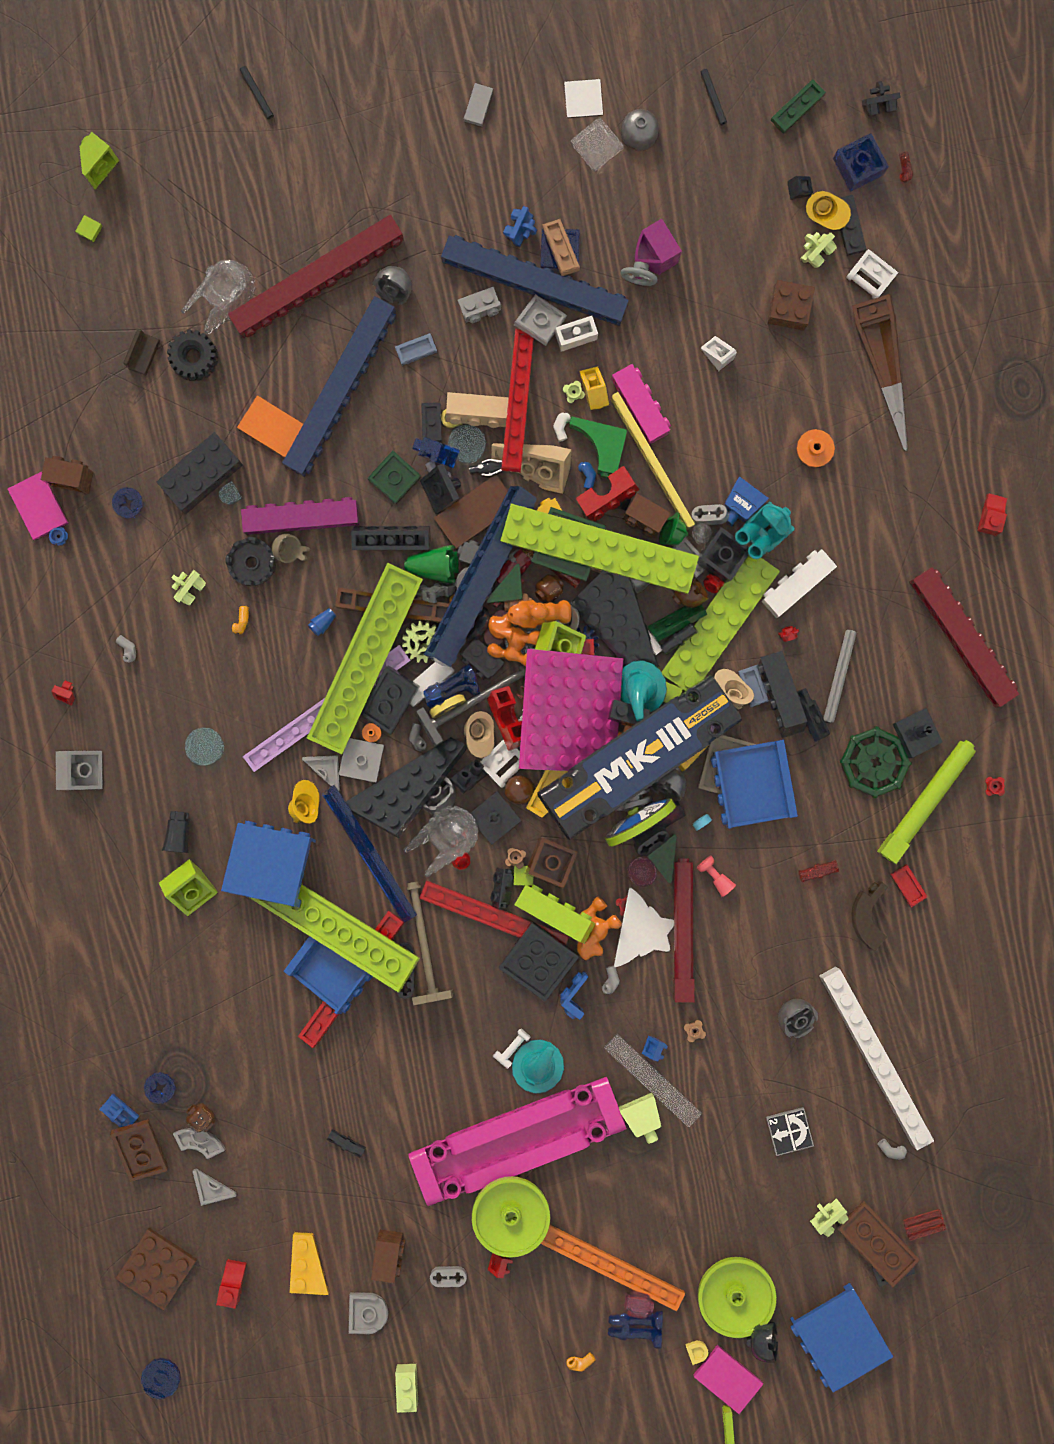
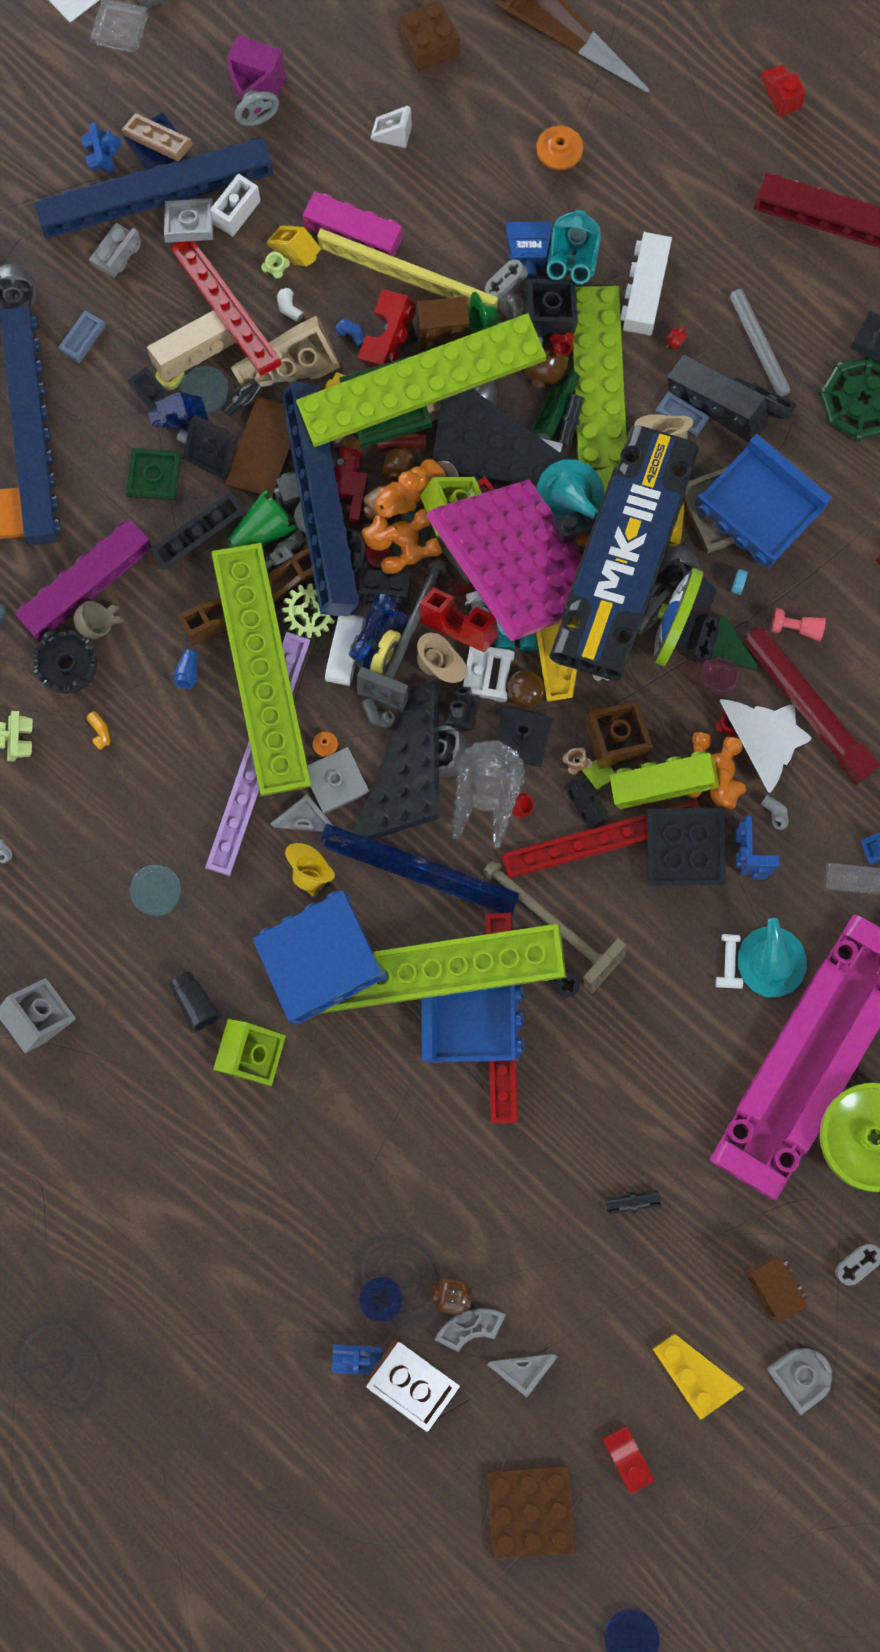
camera: 35 degrees left, 10 degrees down
(389, 699) = (319, 693): black tile -> none
(509, 589) = (359, 490): dark green tile -> none
(606, 440) = (343, 285): green arch -> none

